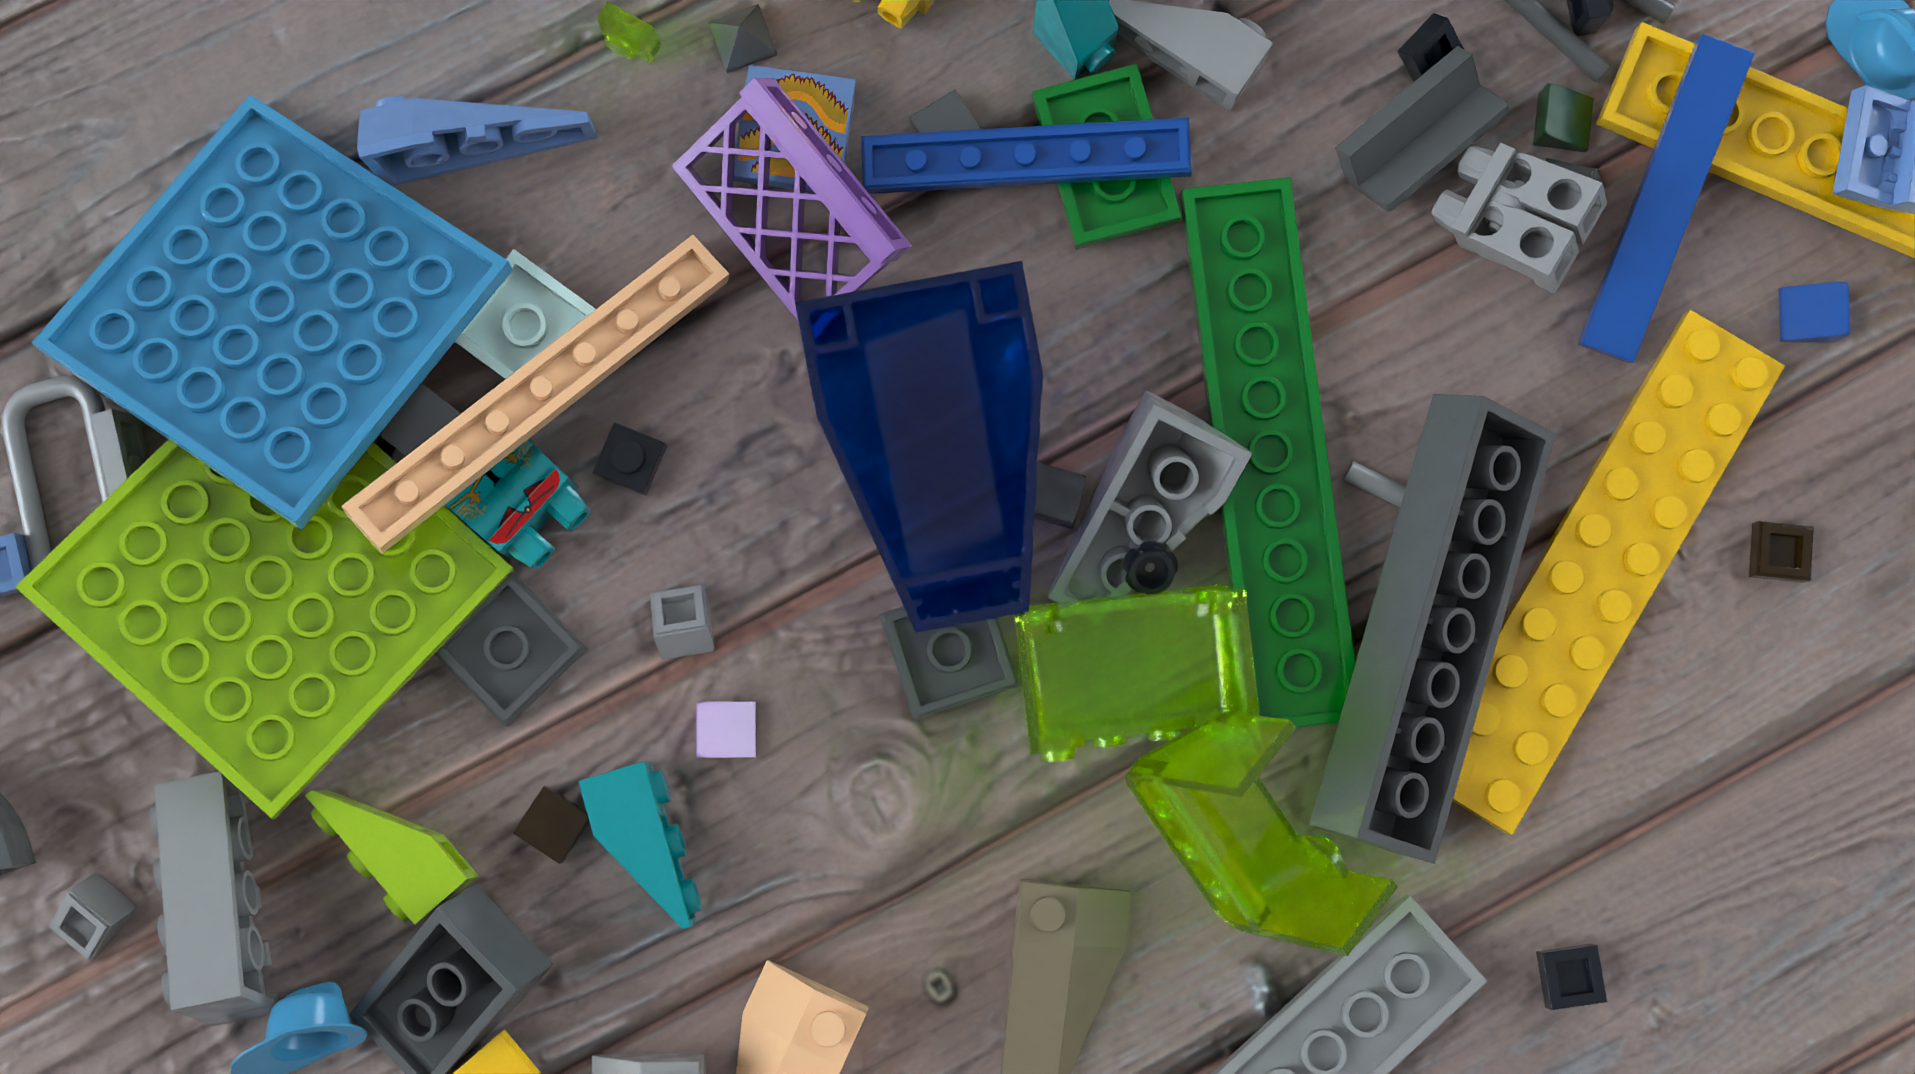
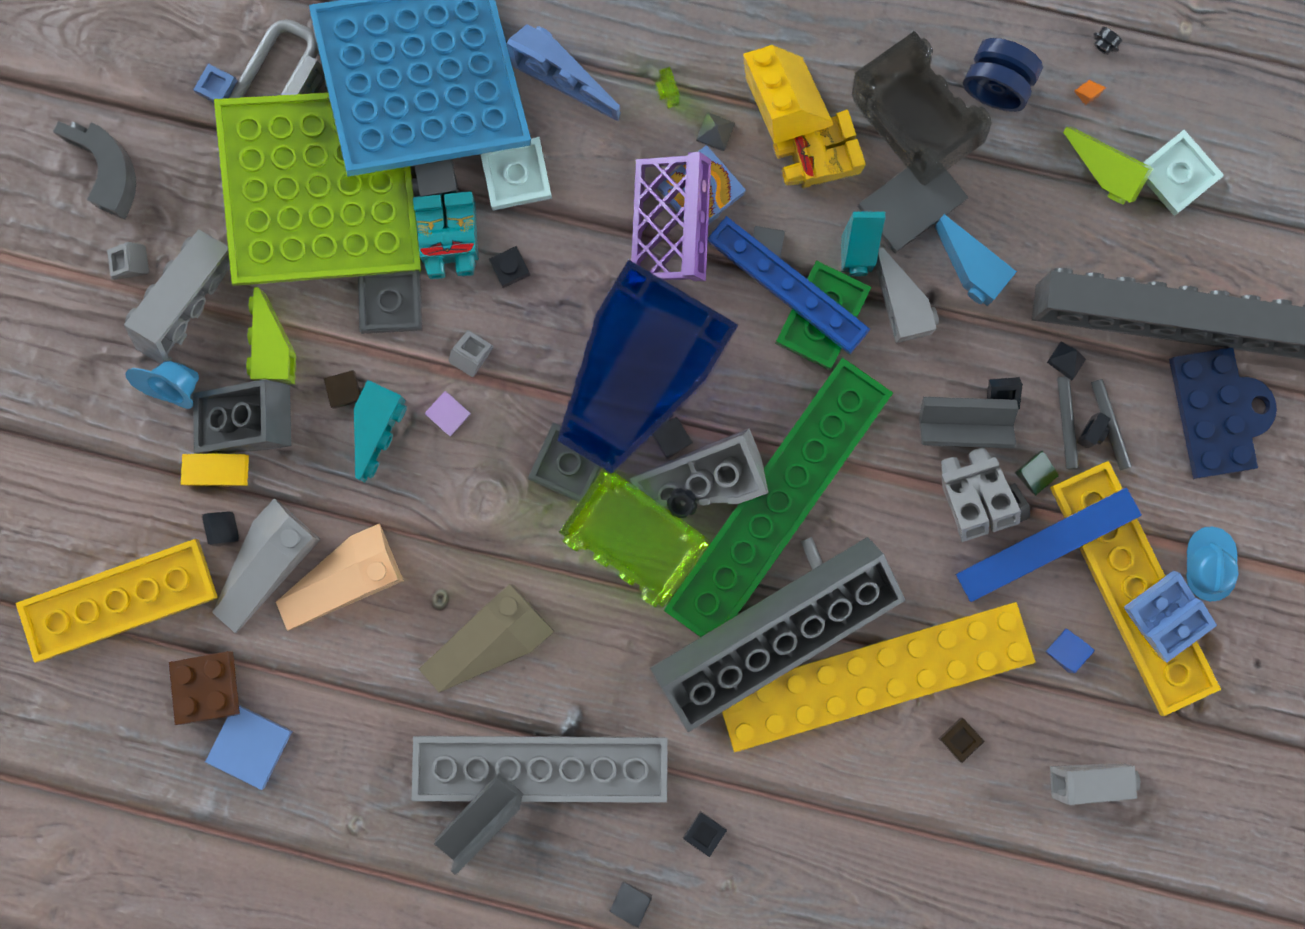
camera: 45 degrees right, 0 degrees up
(534, 395) = (493, 205): light nougat plate -> none
(1239, 844) = (615, 650): clear neon green windscreen -> none

